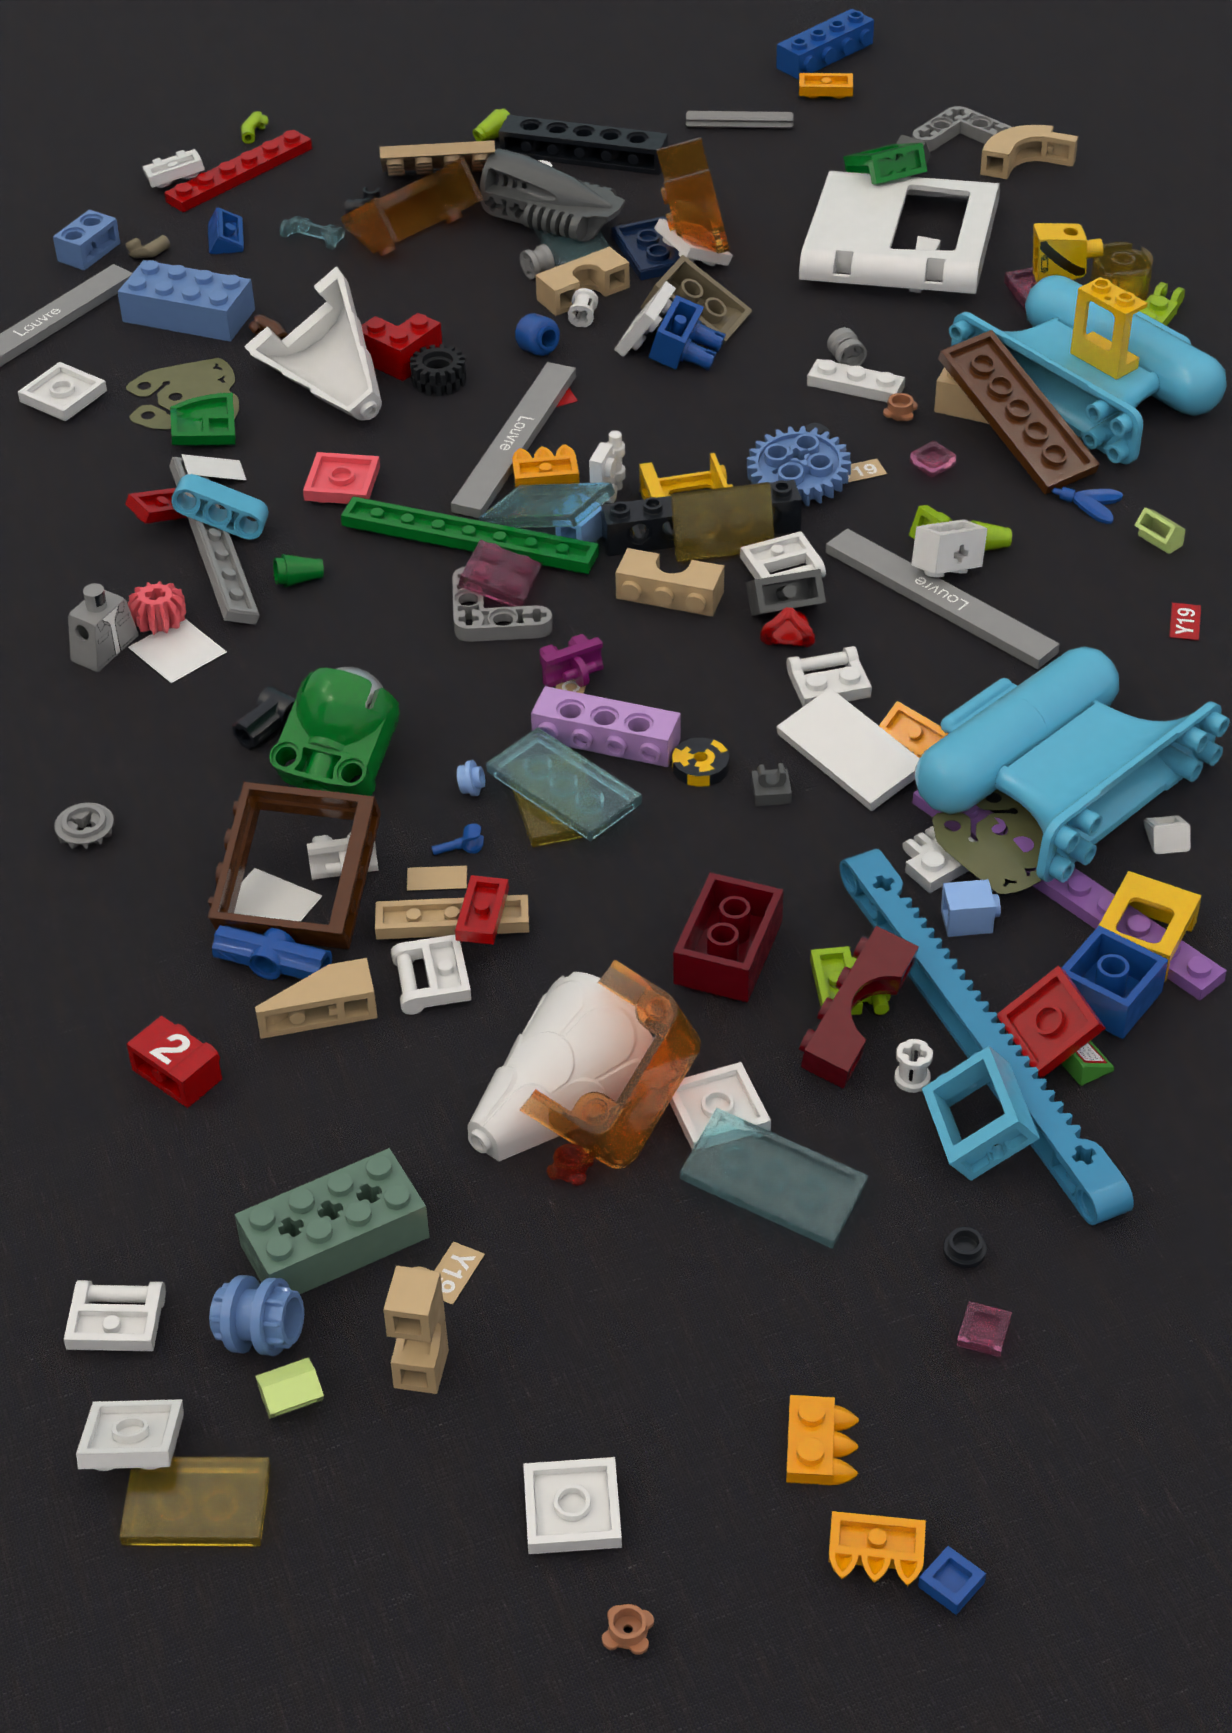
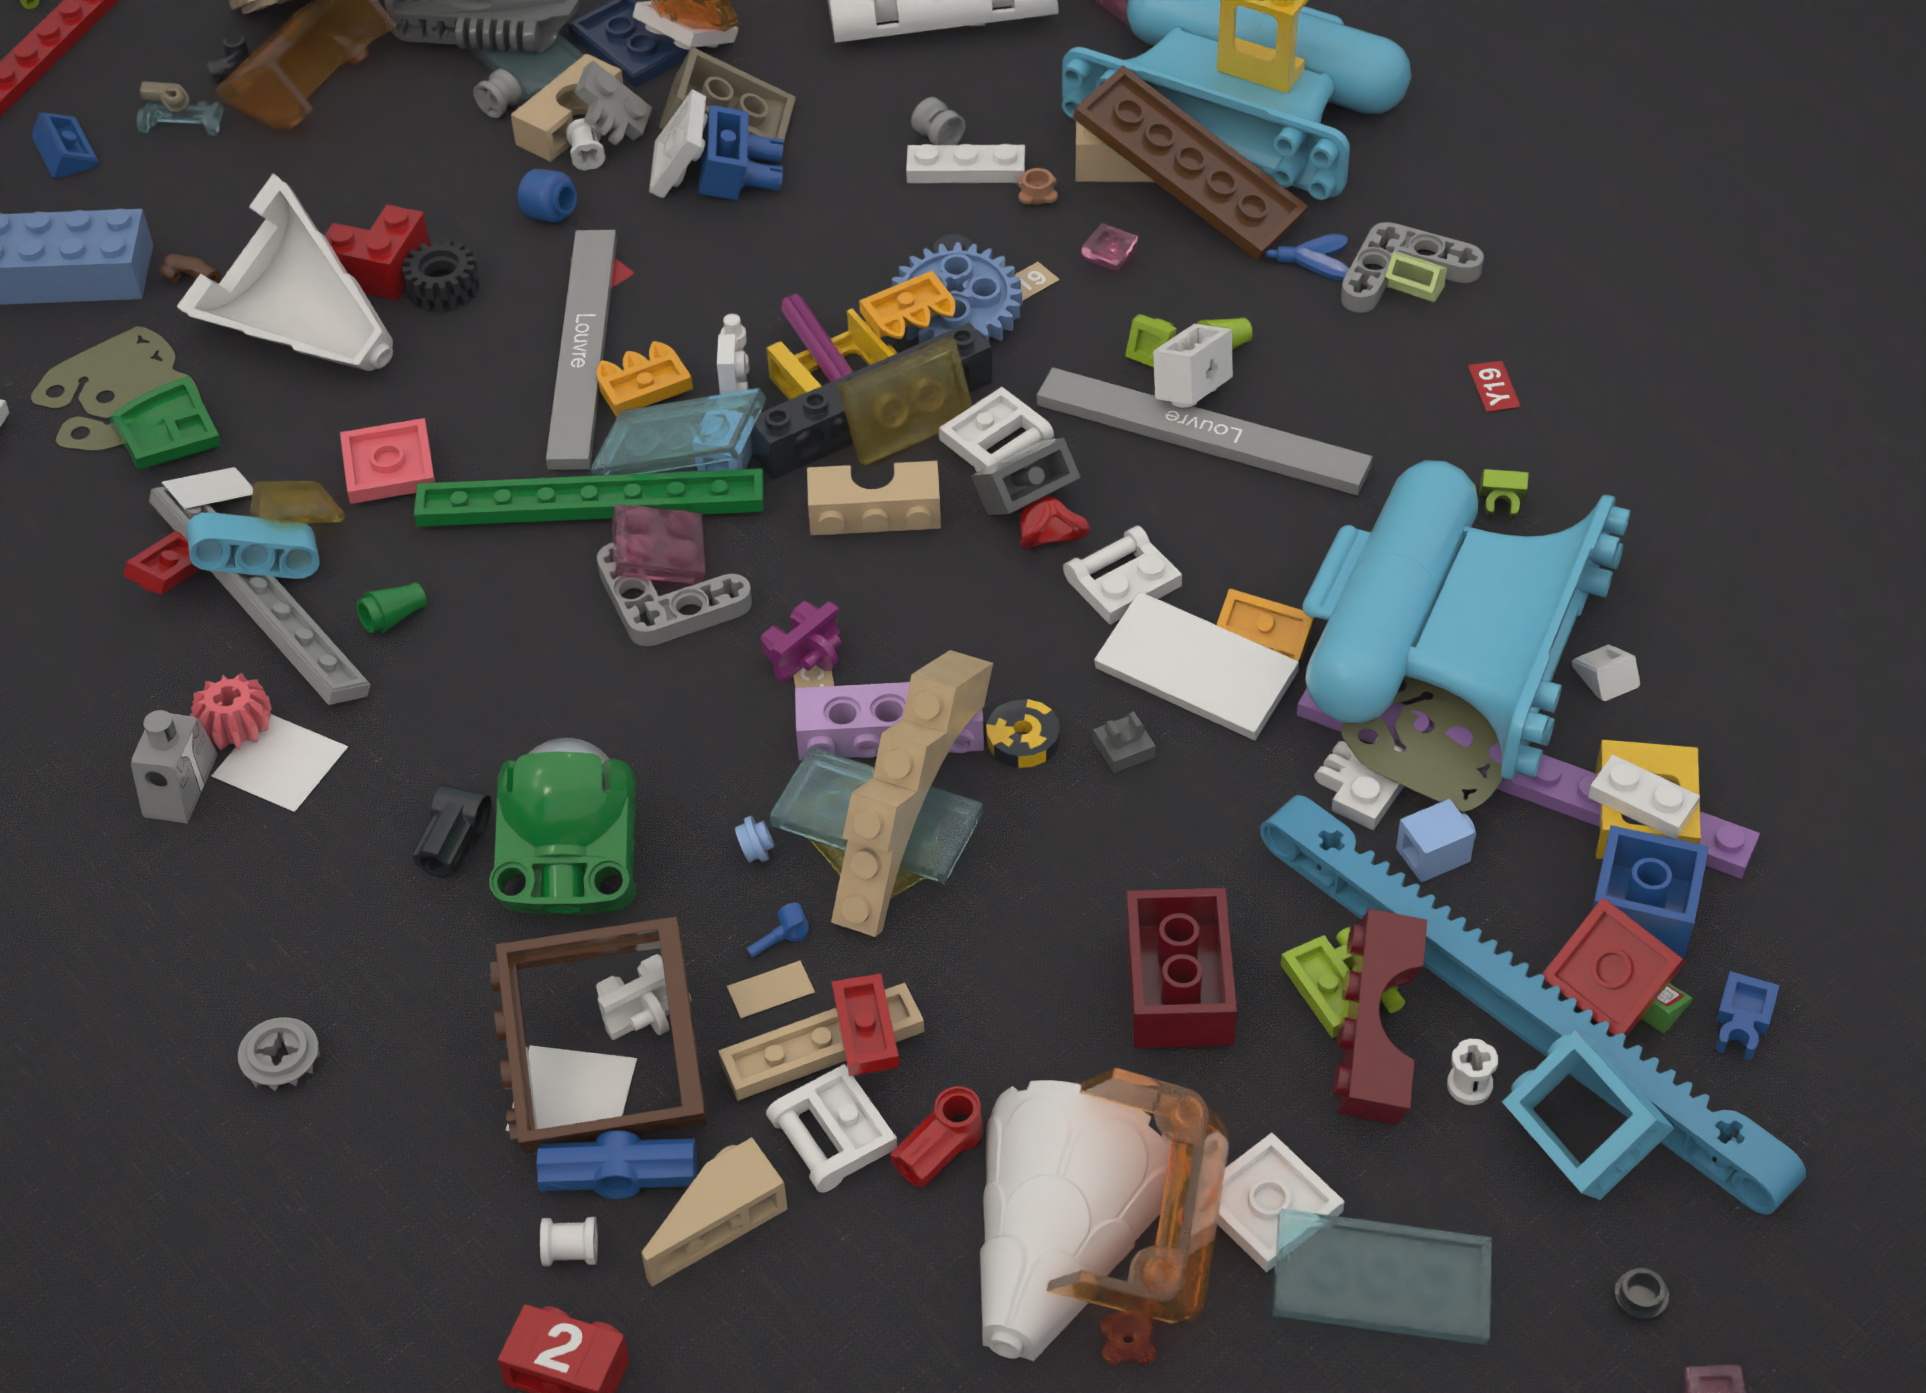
camera: 20 degrees left, 5 degrees up
(215, 991) = (568, 1241): none -> white bush
(261, 486) = (294, 502): none -> clear yellow slope
(309, 214) = (170, 94): none -> dark tan arm
(514, 995) = (938, 1138): none -> red piece
(588, 742) = (909, 755): none -> tan arch
(611, 283) = (611, 104): none -> light grey hinge
(679, 464) = (815, 338): none -> magenta axle
(753, 458) = (907, 305): none -> light orange plate
(1138, 915) = (1644, 796): none -> white plate
(1148, 1082) = (1745, 1011): none -> blue plate
(1151, 686) = (1503, 485): none -> lime tile
(1200, 527) = (1406, 241): none -> light grey beam

